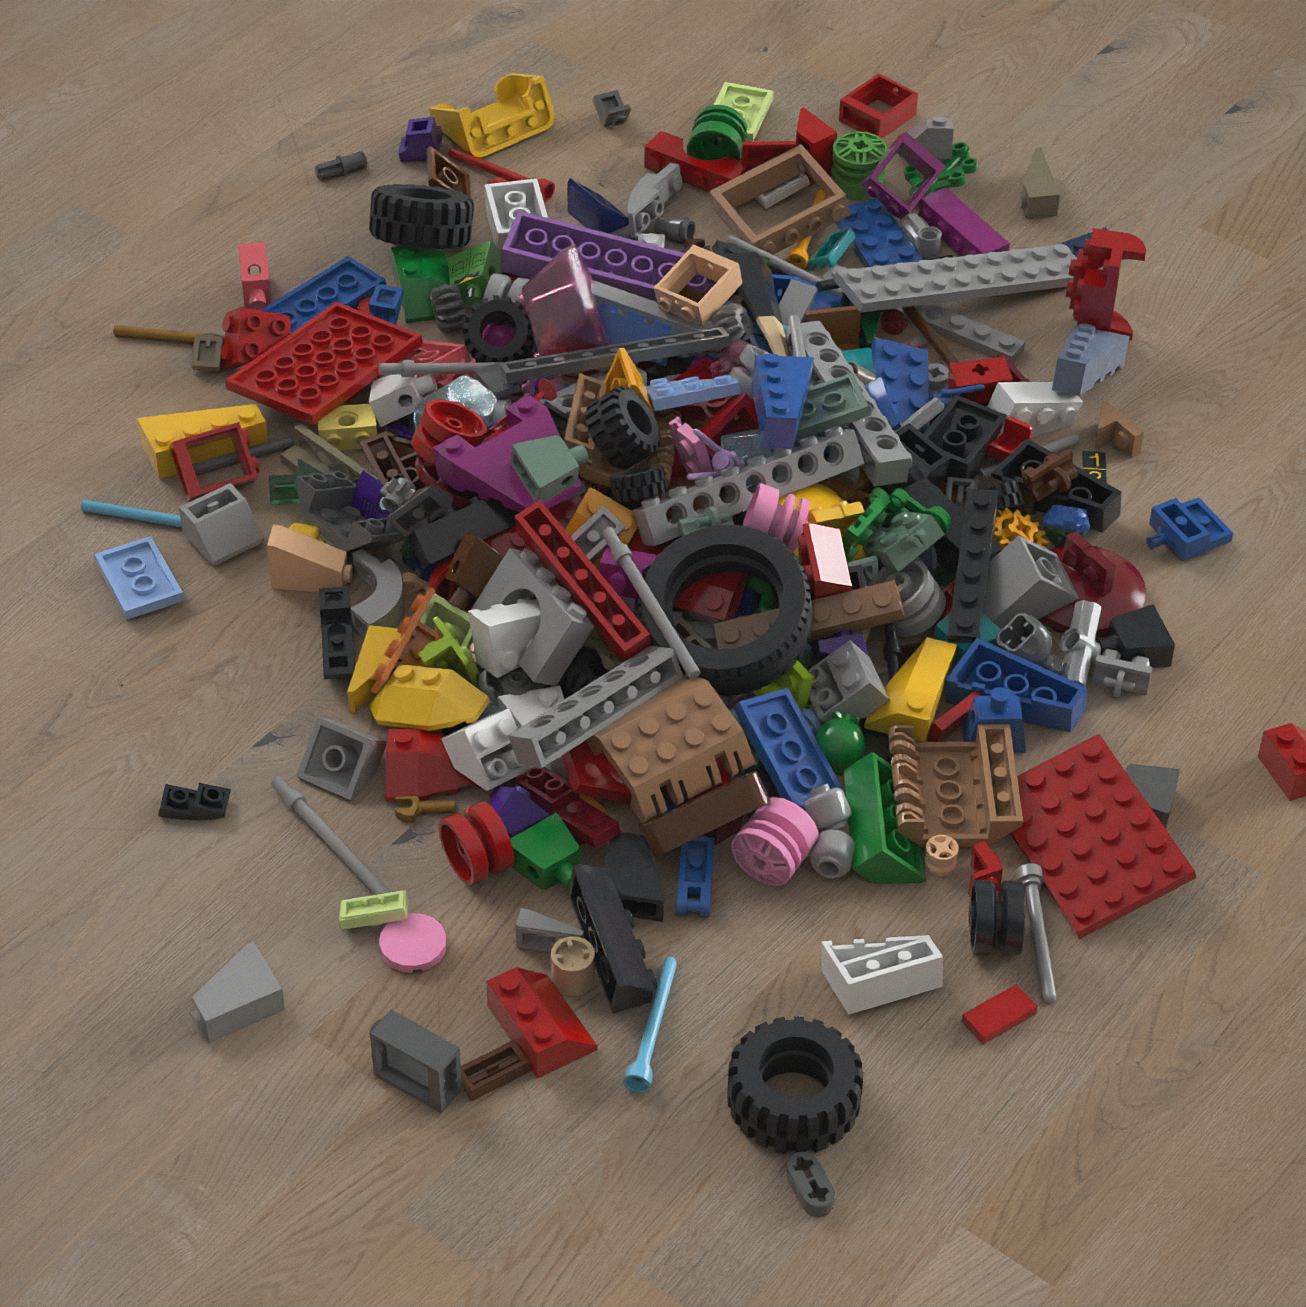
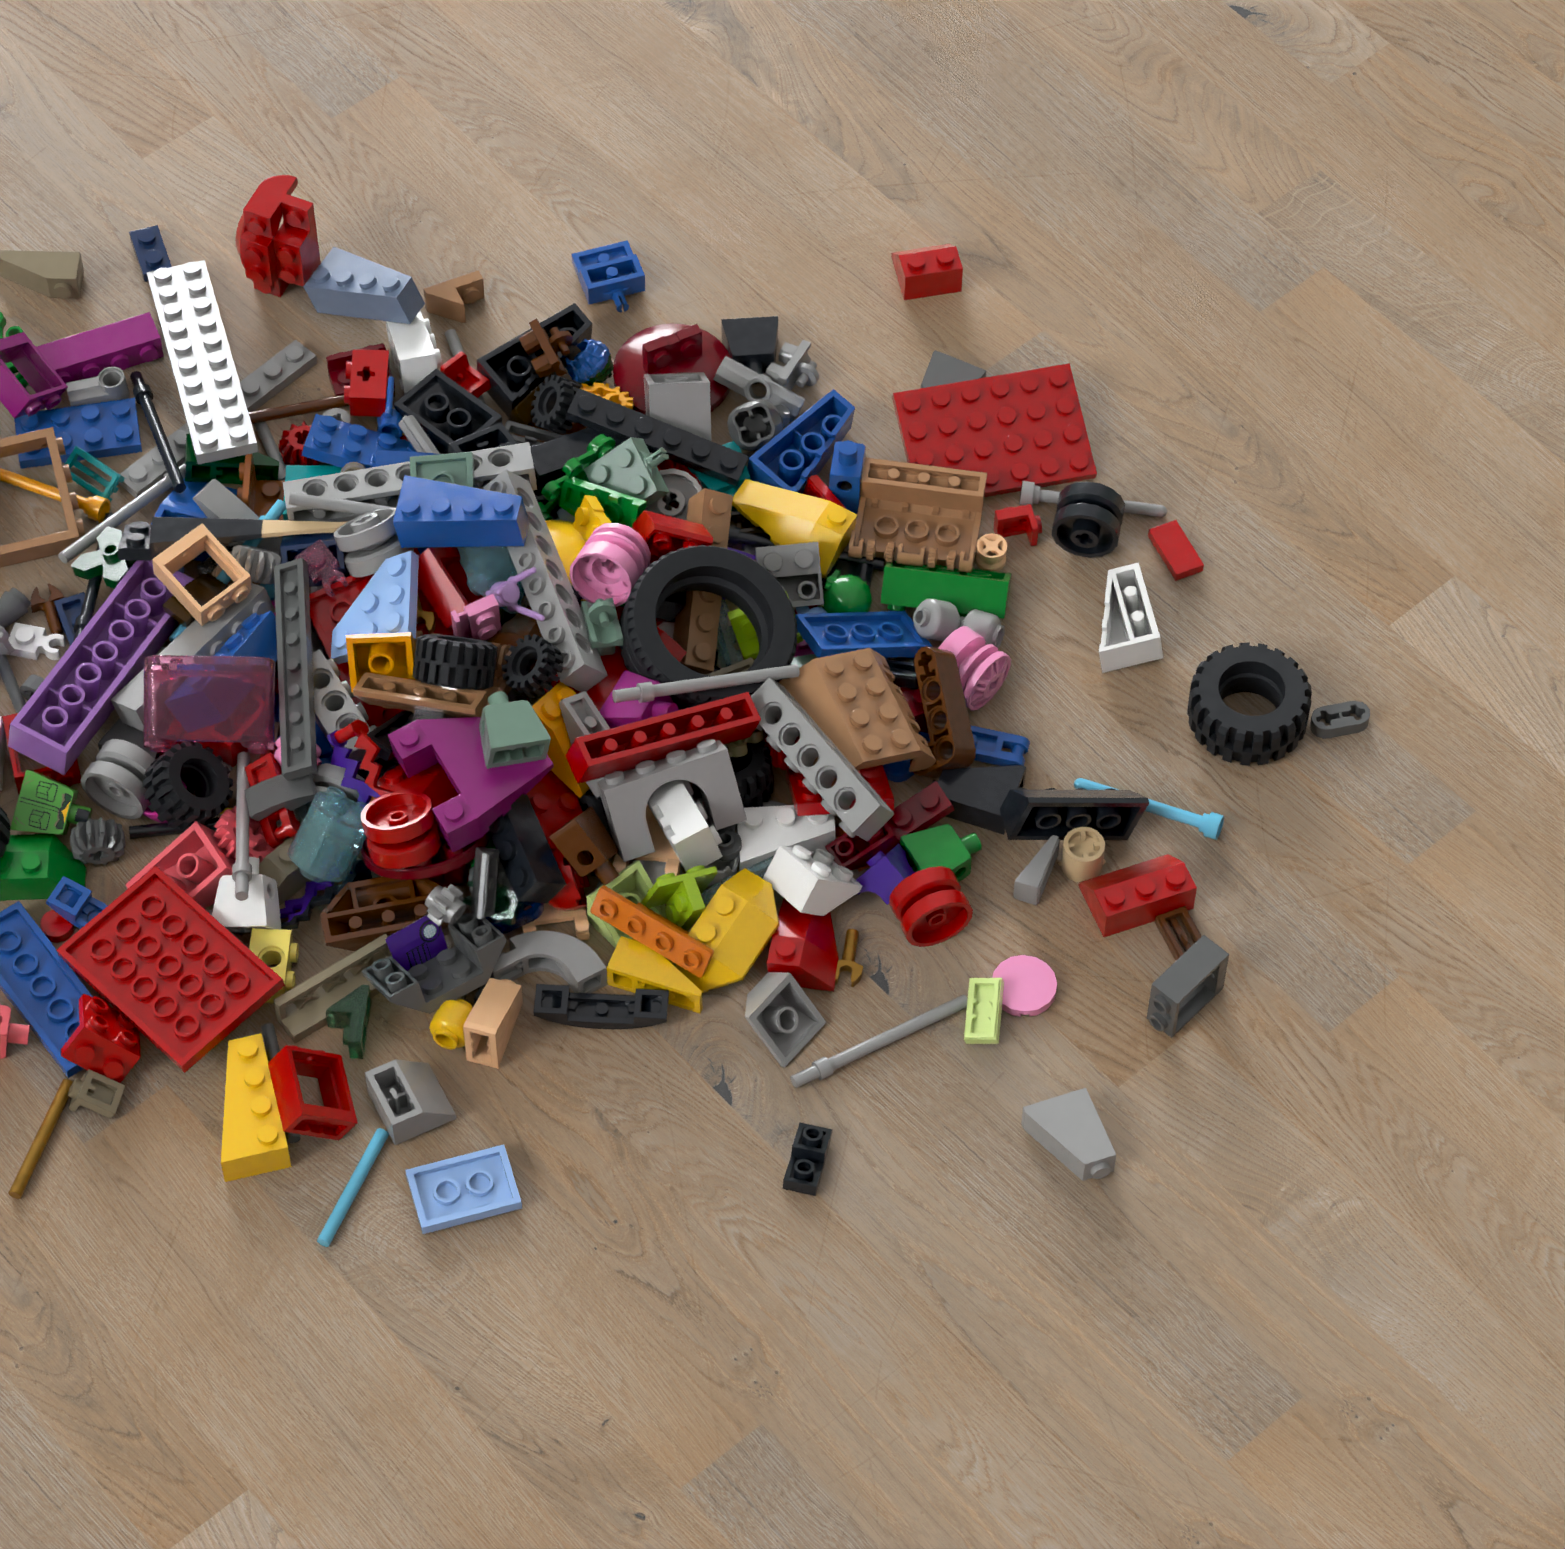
camera: 80 degrees left, 10 degrees up
(1095, 464) = (493, 329): black sticker -> none

